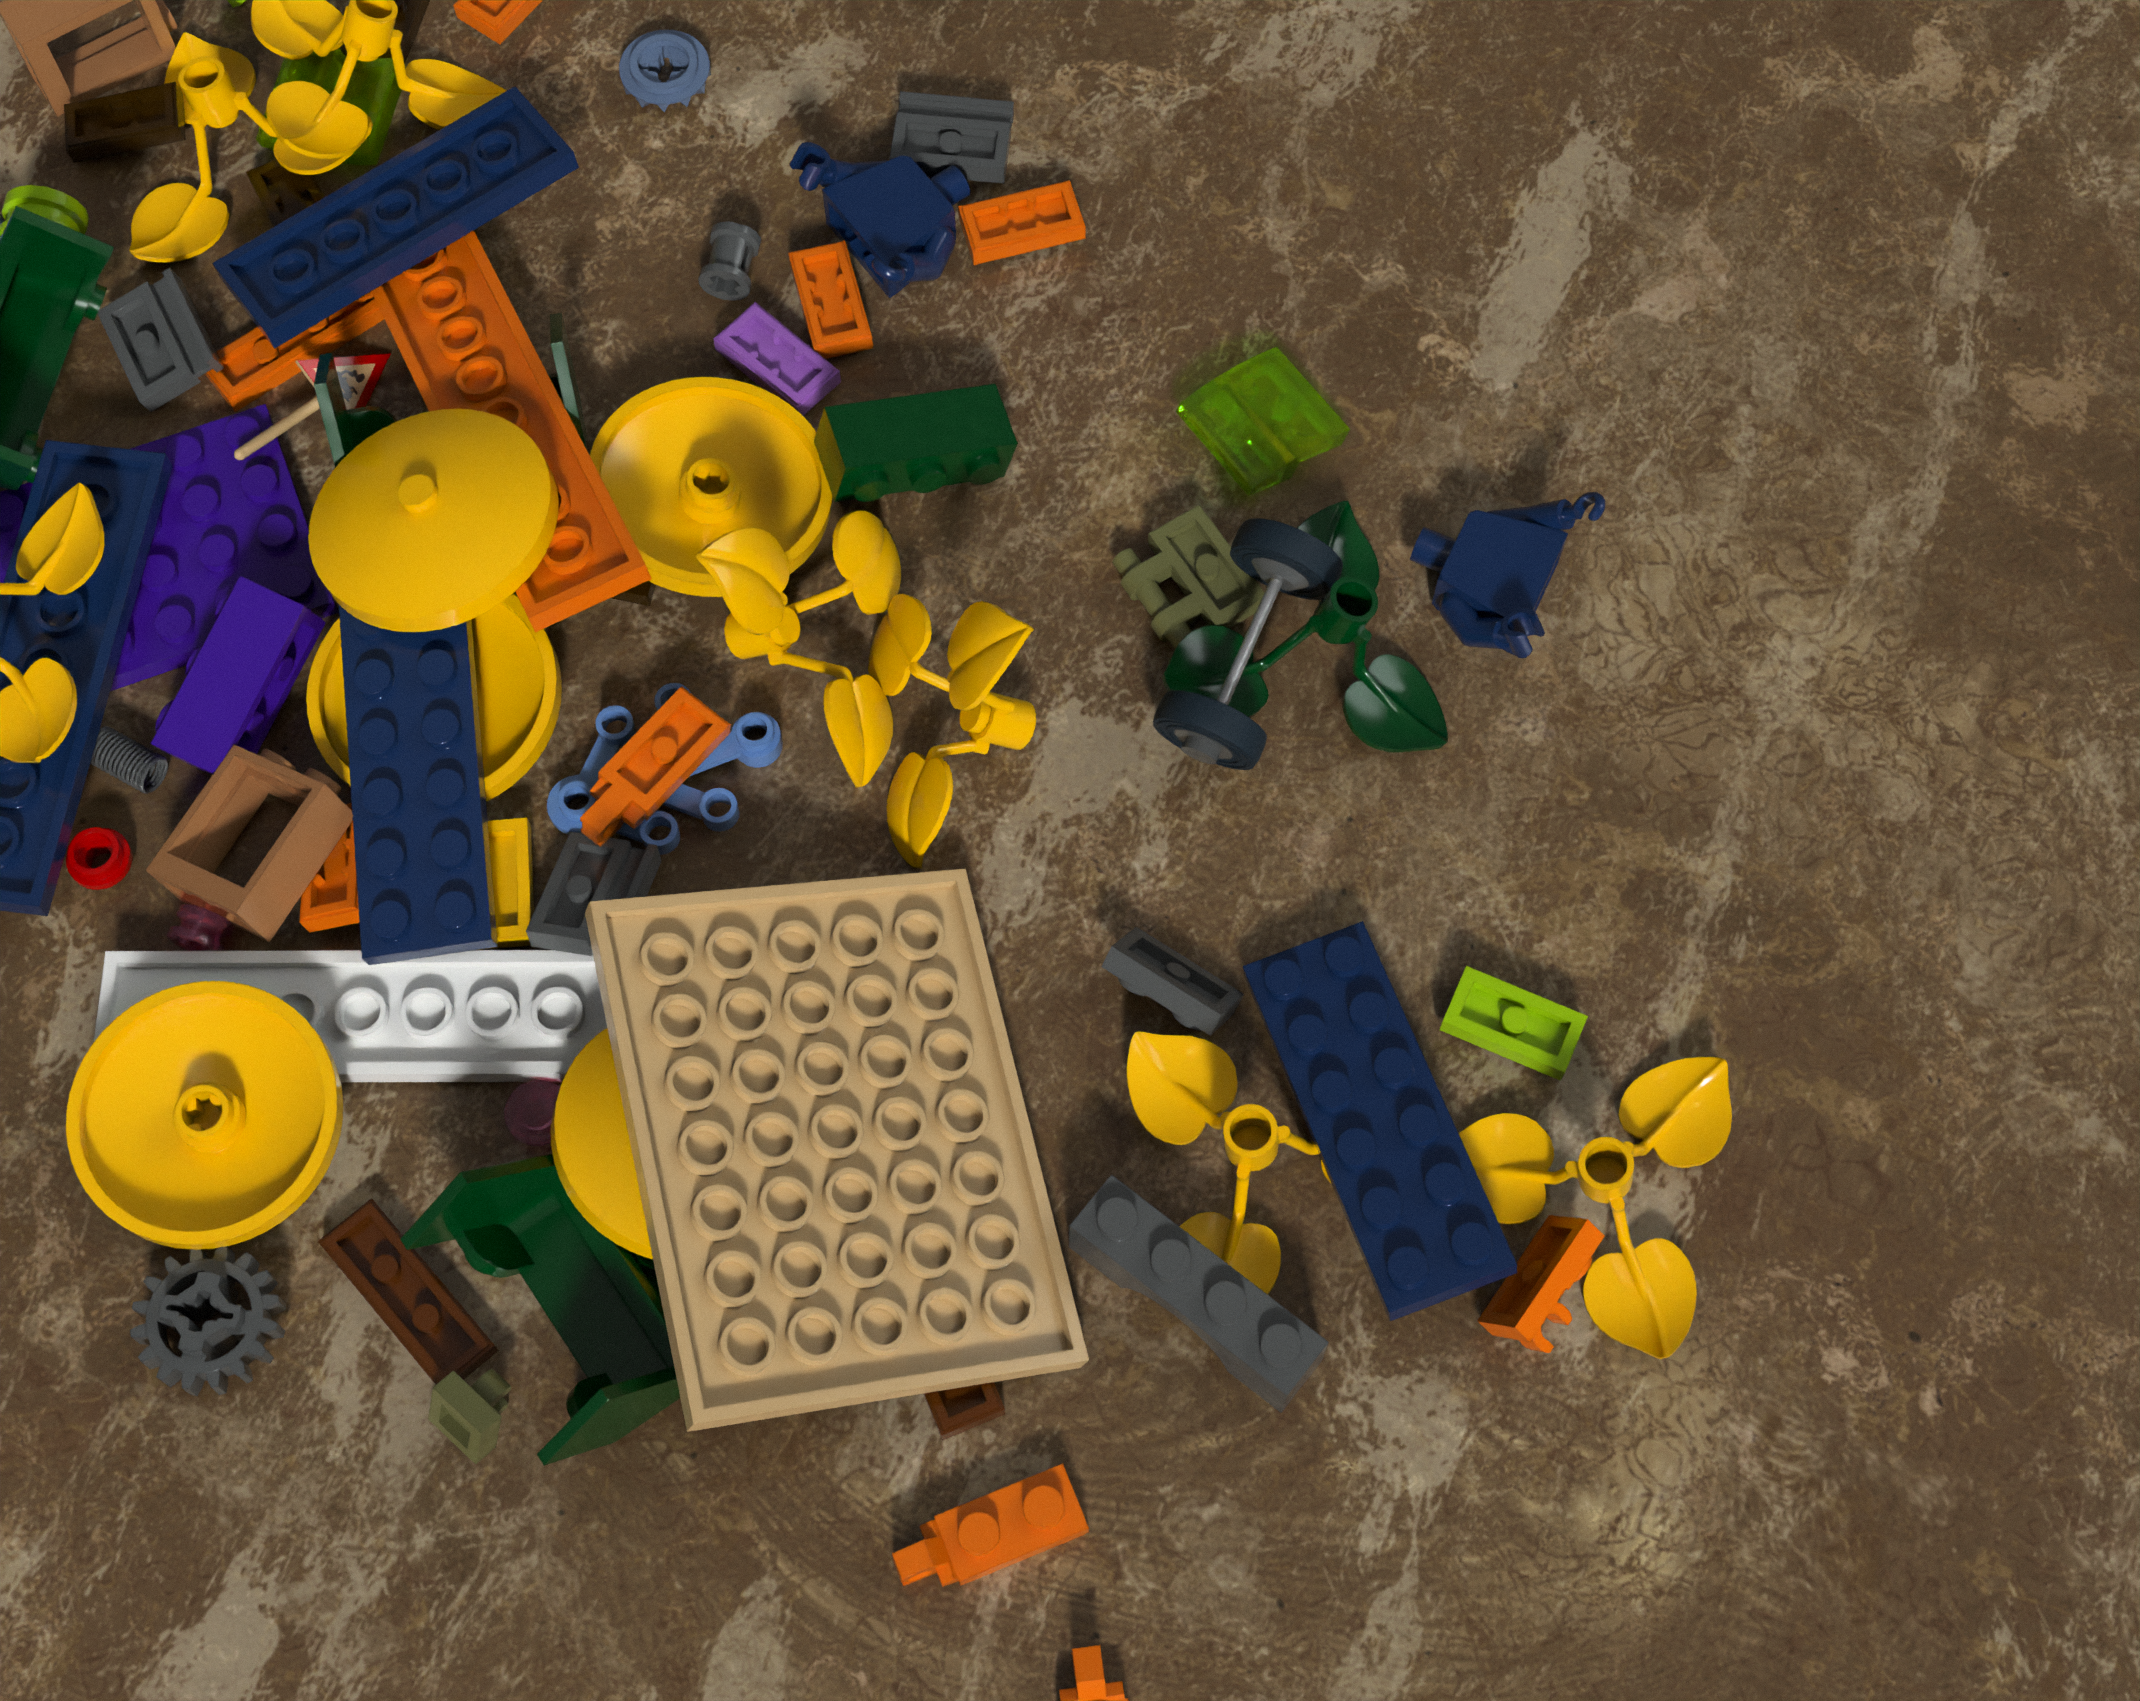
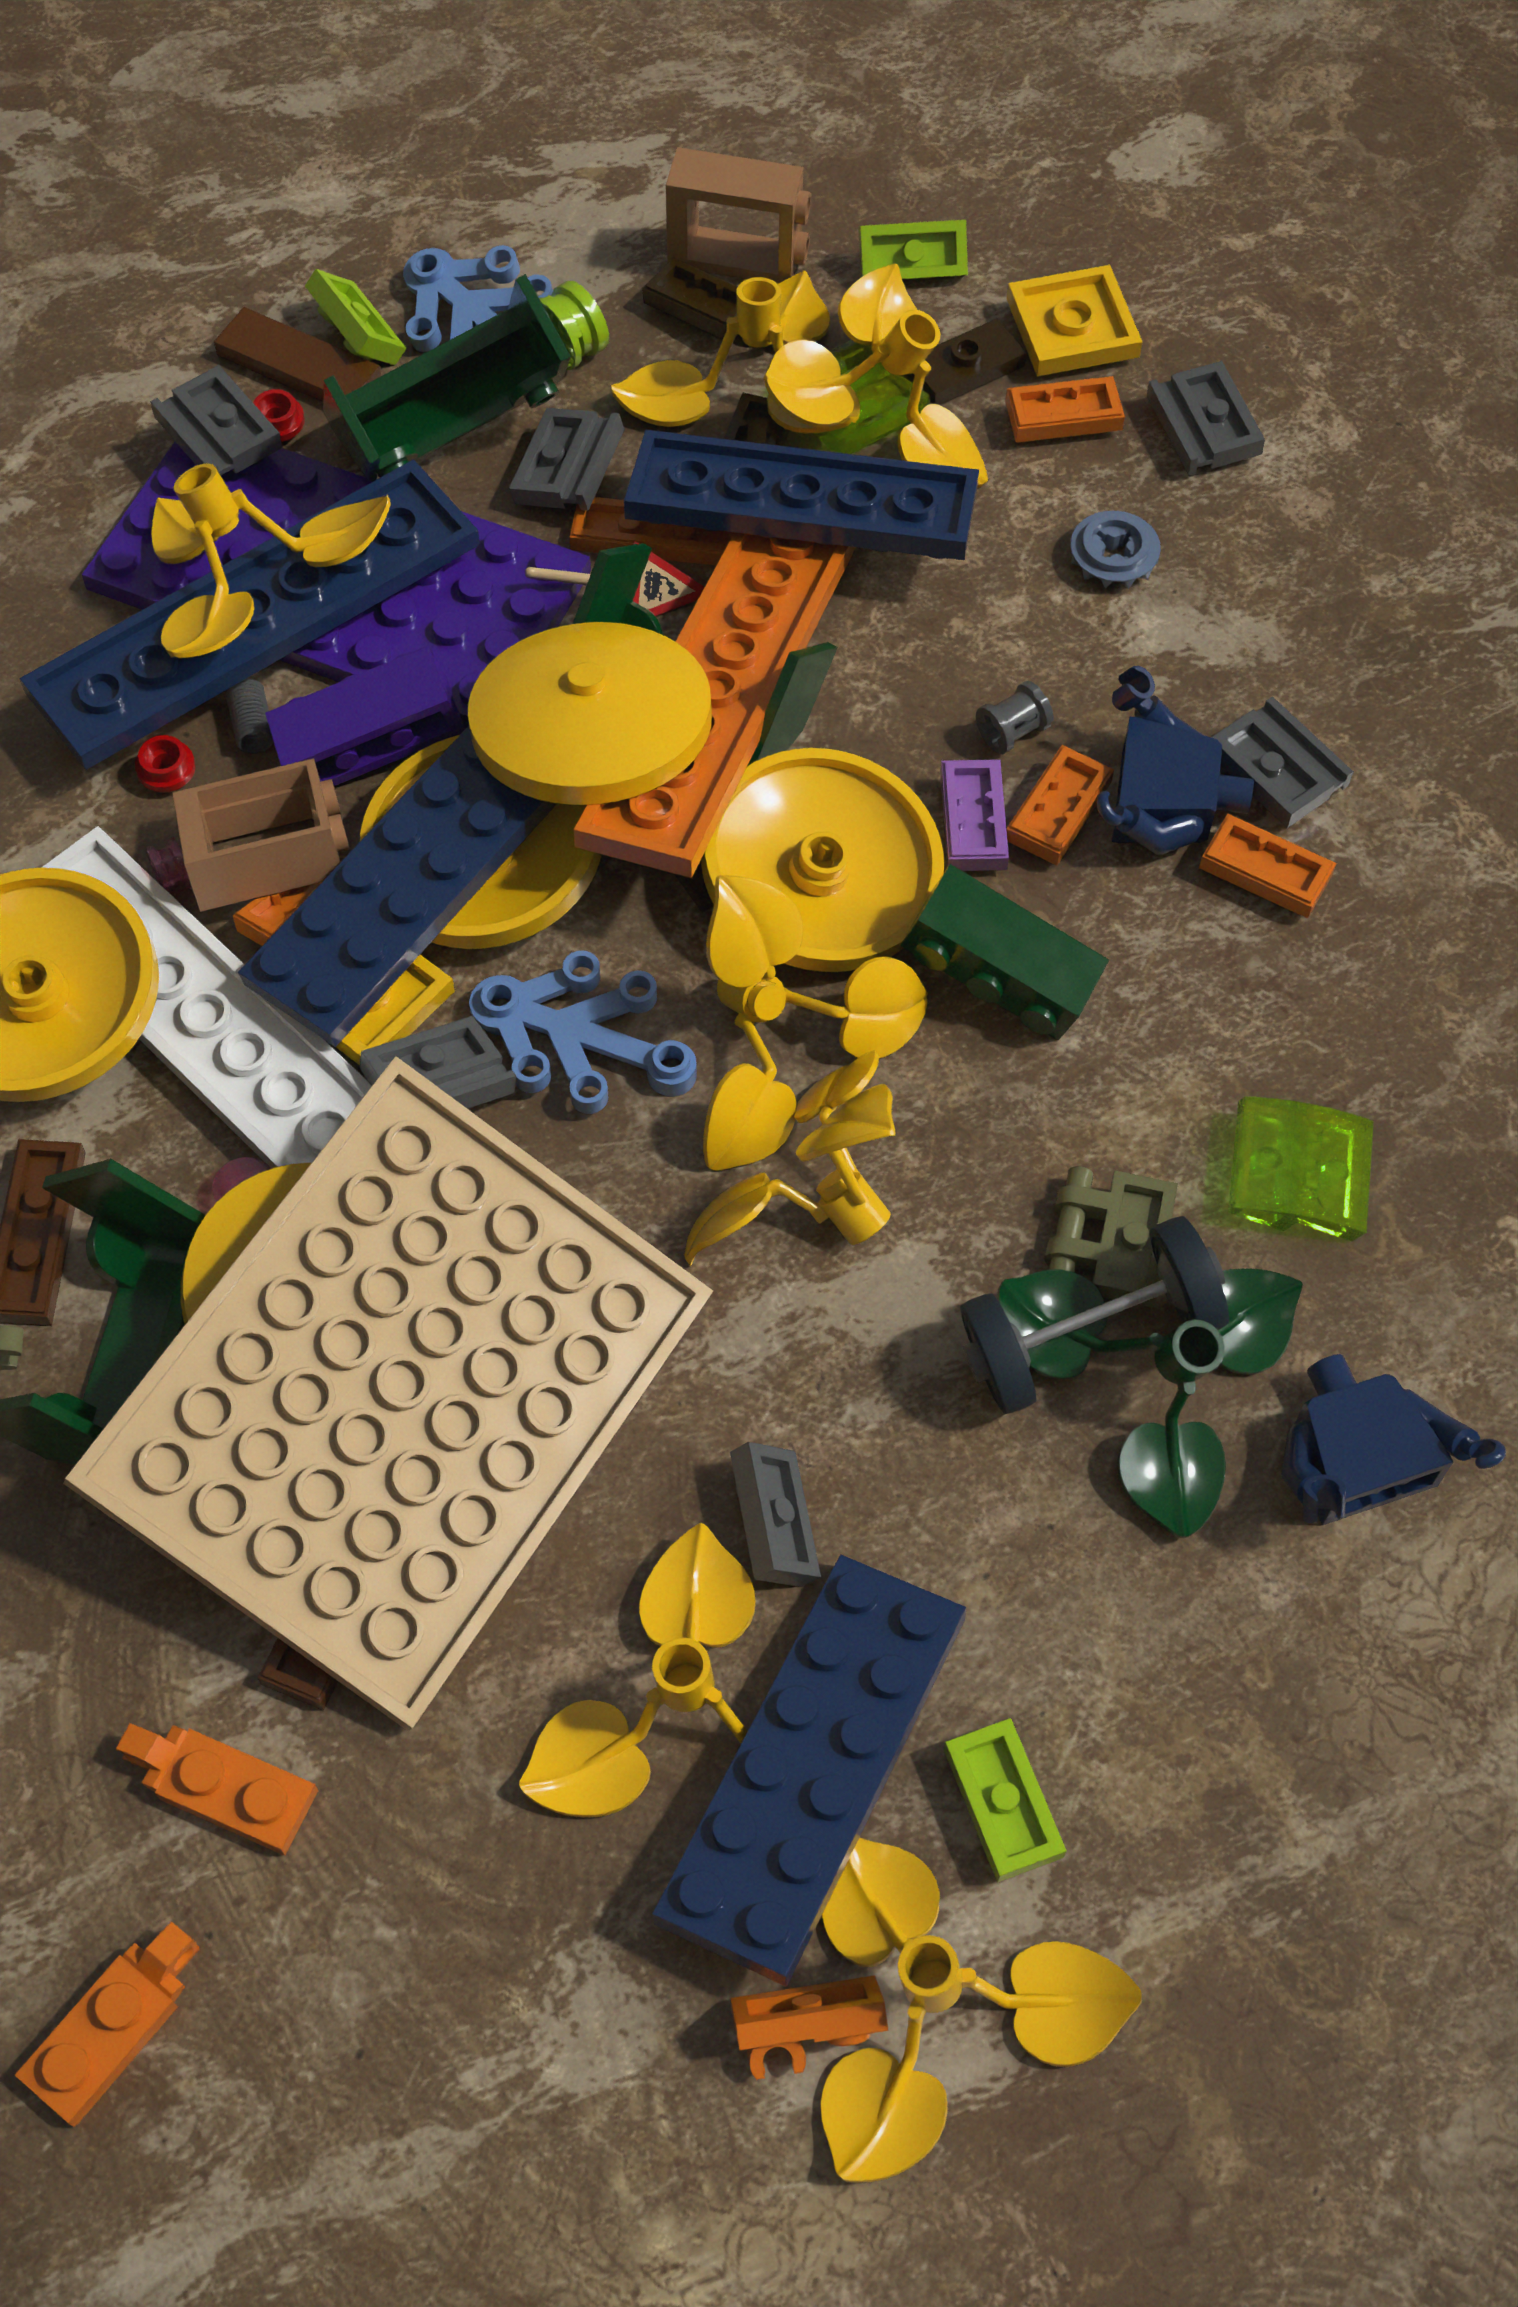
camera: 45 degrees right, 5 degrees down
(653, 765) = (570, 1016): orange hinge -> none
(1235, 1318) = (537, 1760): dark grey arch -> none

